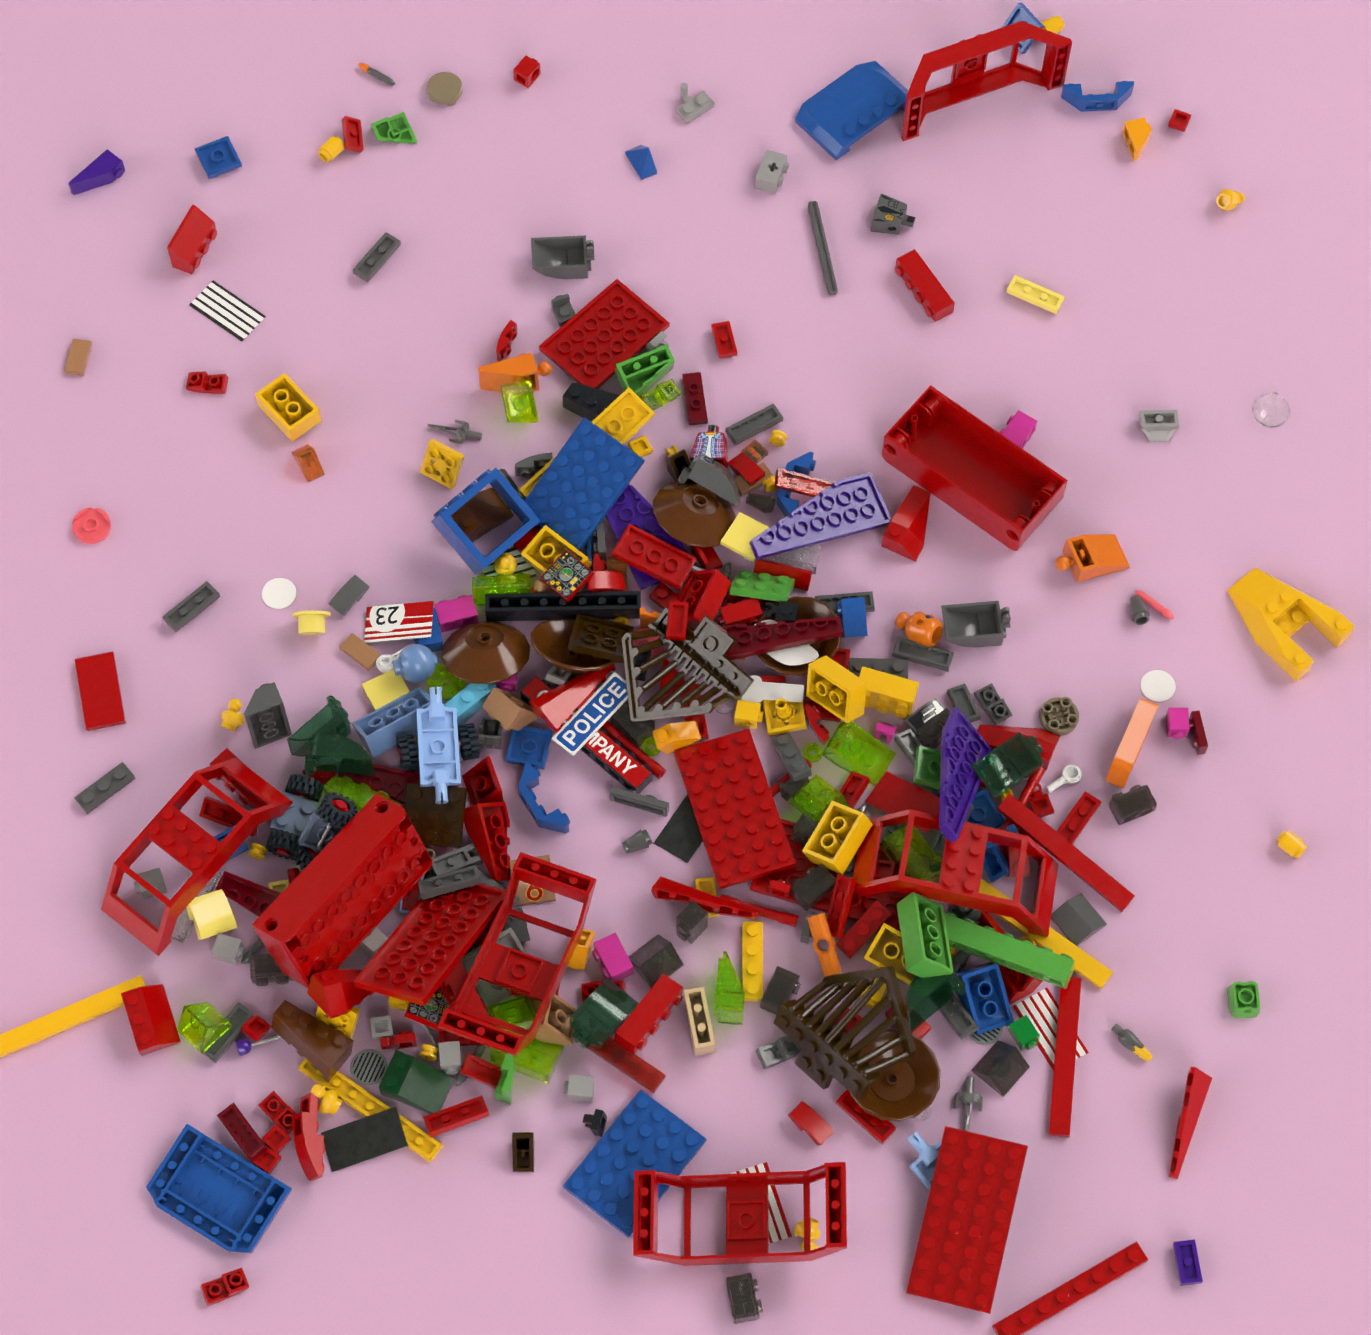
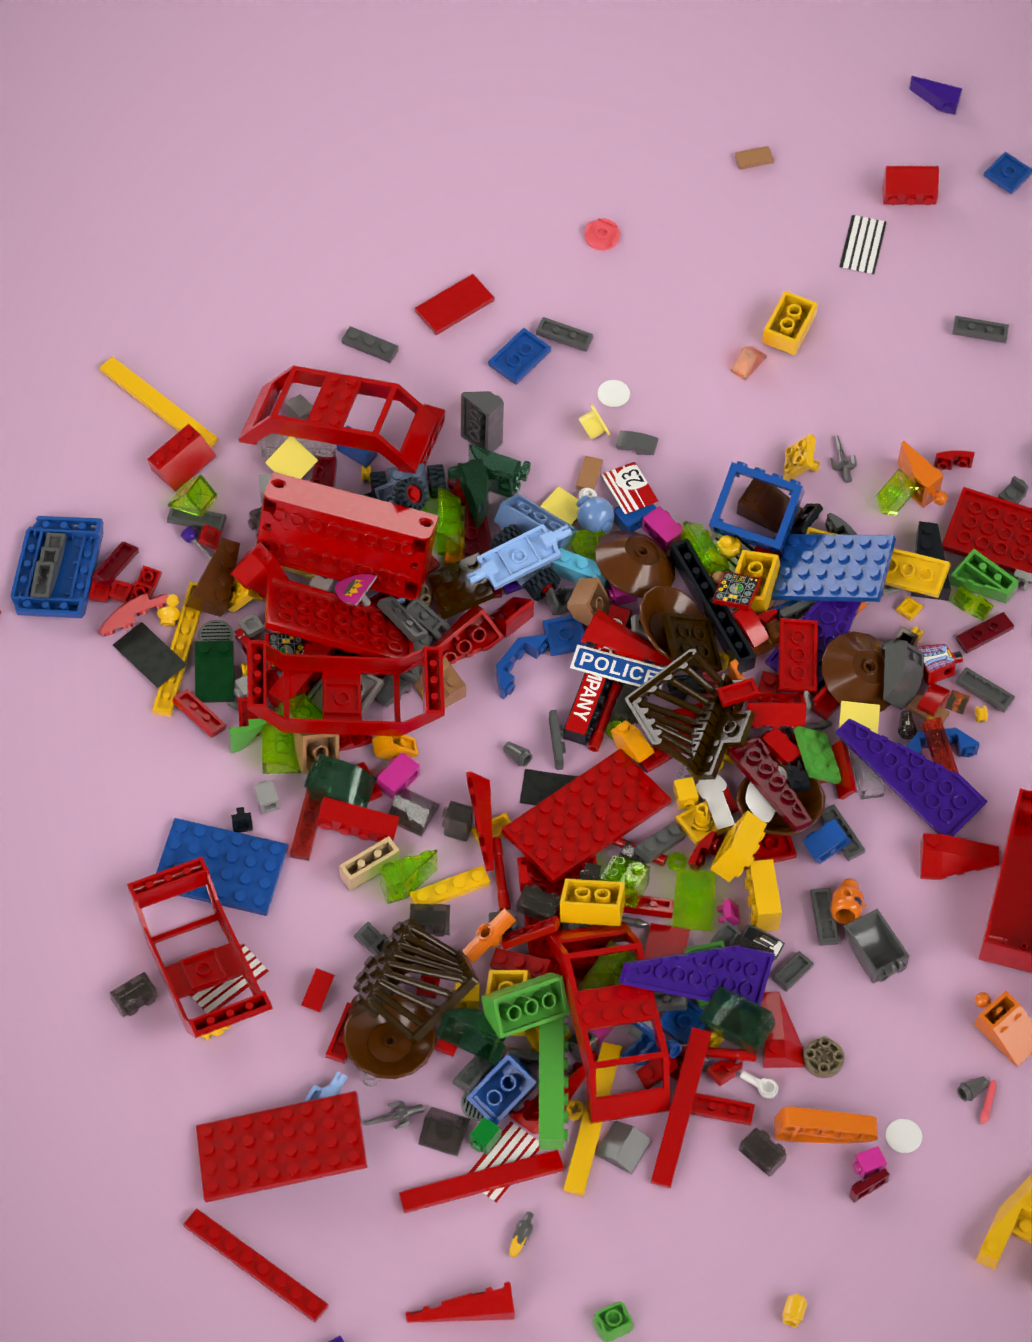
camera: 65 degrees right, 5 degrees down
(194, 657) = (519, 356): none -> blue plate
(205, 383) = (782, 258): red slope -> none
(213, 1198) = (48, 565): none -> dark grey slope
(221, 813) = (389, 432): red plate -> none
(402, 909) = (354, 589): none -> dark pink shield
(523, 1151) = (190, 775): dark brown slope -> none
(896, 667) = (791, 887): dark grey plate -> none
(992, 704) = (806, 995): dark grey slope -> none

